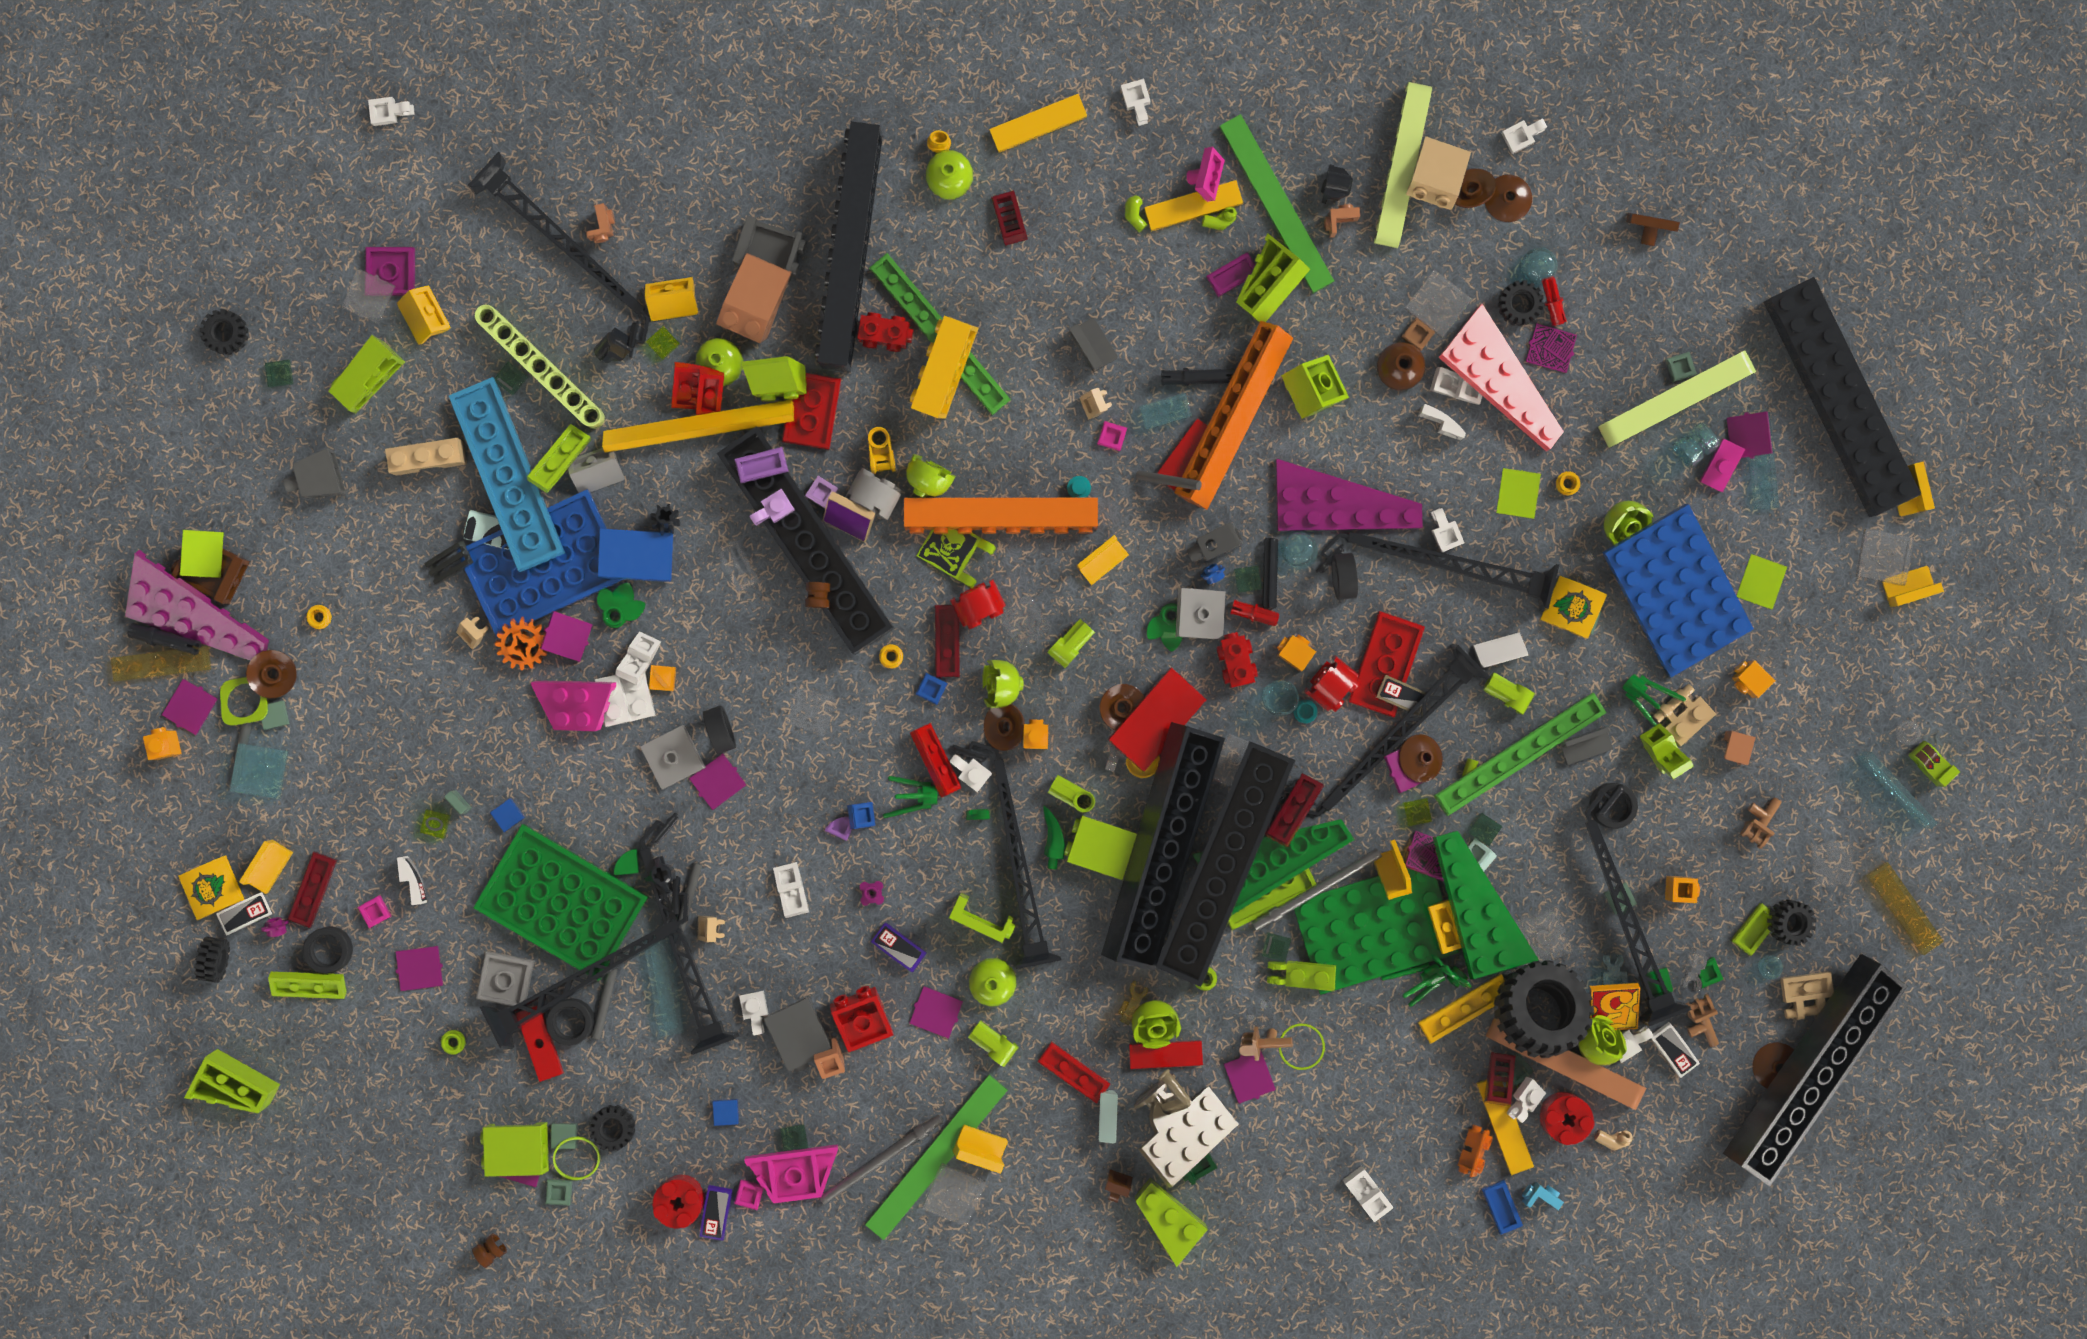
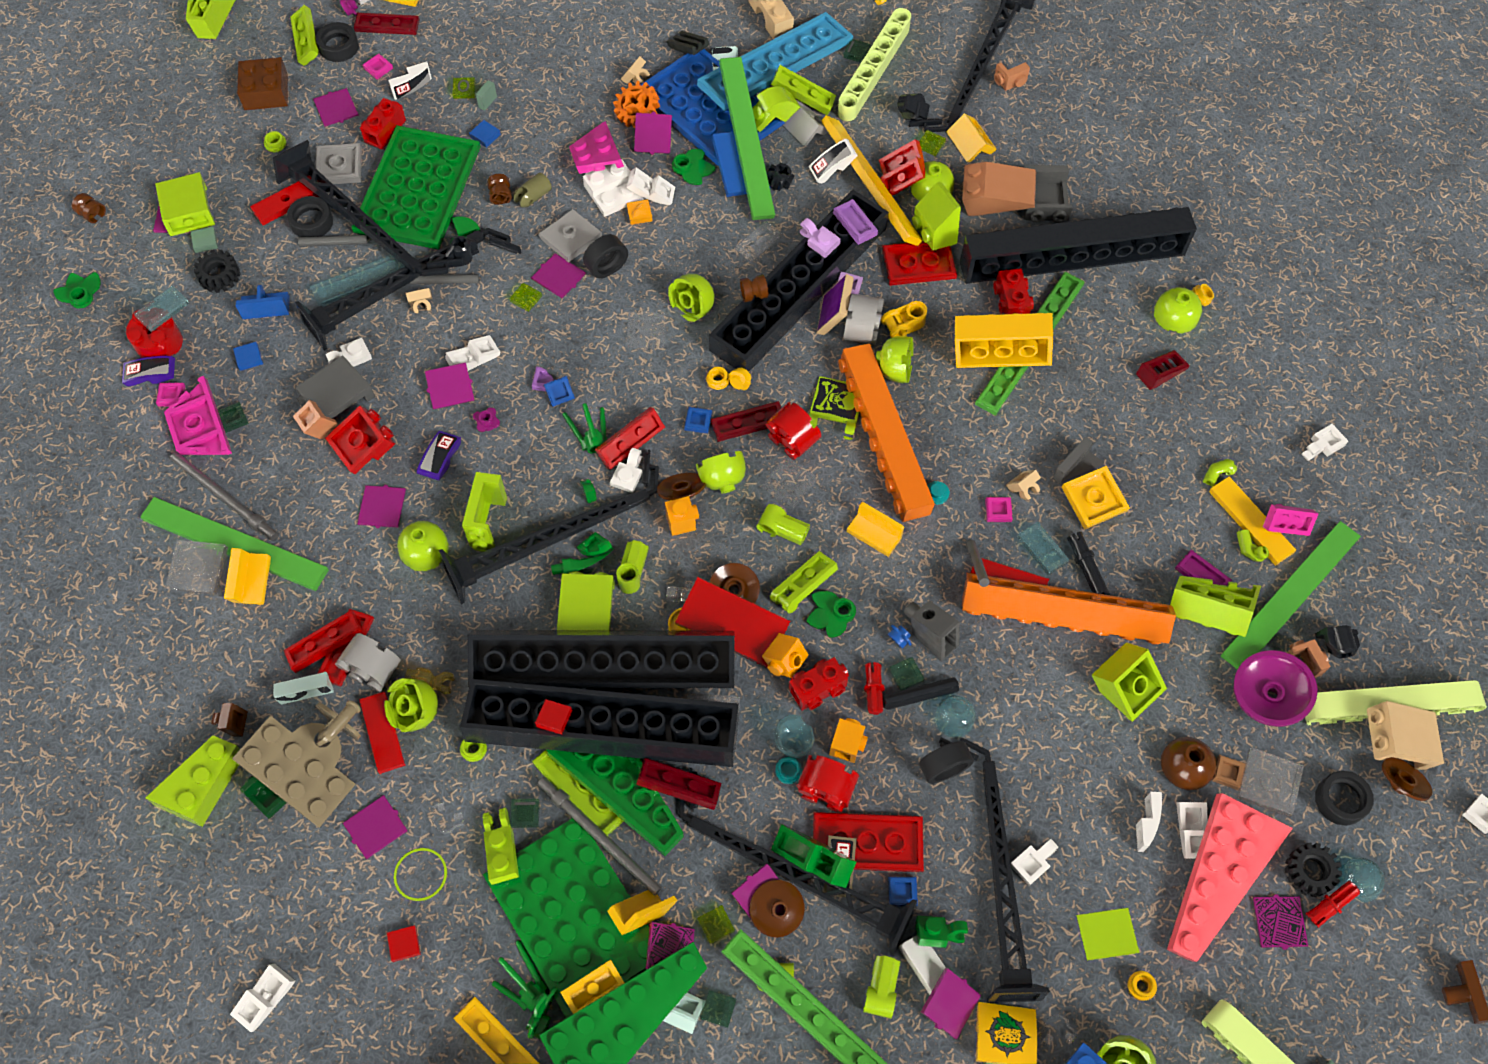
camera: 75 degrees right, 25 degrees down
(369, 1042) = (262, 83): none -> reddish brown brick
(466, 921) = (382, 122): none -> red brick
(558, 1192) = (151, 248): sand green tile -> none
(576, 1138) = (172, 241): lime piece -> none
(579, 501) = (774, 103): none -> lime brick
(588, 1272) = (78, 287): none -> green plate
(592, 817) = (500, 192): none -> reddish brown wheel
(600, 781) = (532, 190): none -> olive piece
(611, 541) = (747, 138): none -> bright green tile
(661, 1188) = (161, 308): none -> clear light blue tile
(663, 458) = (834, 158): none -> slope
(668, 1086) = (263, 304): none -> blue panel
(735, 821) = (525, 297): none -> clear neon green tile
(792, 652) = (691, 292): none -> lime cylinder
(823, 920) = (449, 386): none -> magenta piece
(900, 635) = (740, 378): none -> yellow plate
(995, 1044) = (359, 564): lime piece -> none
(1038, 123) = (1260, 369): yellow tile -> none
(1039, 823) = (594, 545): none -> green tile
(1065, 1090) = (323, 641): none -> red tile
(1103, 1053) = (368, 662): none -> light grey brick
(1130, 342) = (1095, 497): none -> yellow plate
(1134, 642) = (803, 581): none -> lime plate
(1200, 613) = (854, 634): light grey plate -> none
(1205, 683) = (785, 655): none -> light orange brick
(1217, 904) = (553, 716): none -> red tile
(1252, 1044) = (411, 817): medium nougat arm -> none
(1324, 502) = (1016, 732): magenta wing -> none
(1357, 1071) = (403, 943): none -> red tile
(1381, 261) = (1285, 677): none -> magenta dish
(1391, 716) = (813, 856): none -> green slope
(1436, 649) = (902, 890): none -> blue tile
(1471, 229) = (1330, 811): none -> black tyre
(1478, 635) = (936, 933): none -> green plate
(1507, 210) = (1404, 831): reddish brown dish -> none
(1537, 643) = (950, 1003): none -> magenta piece

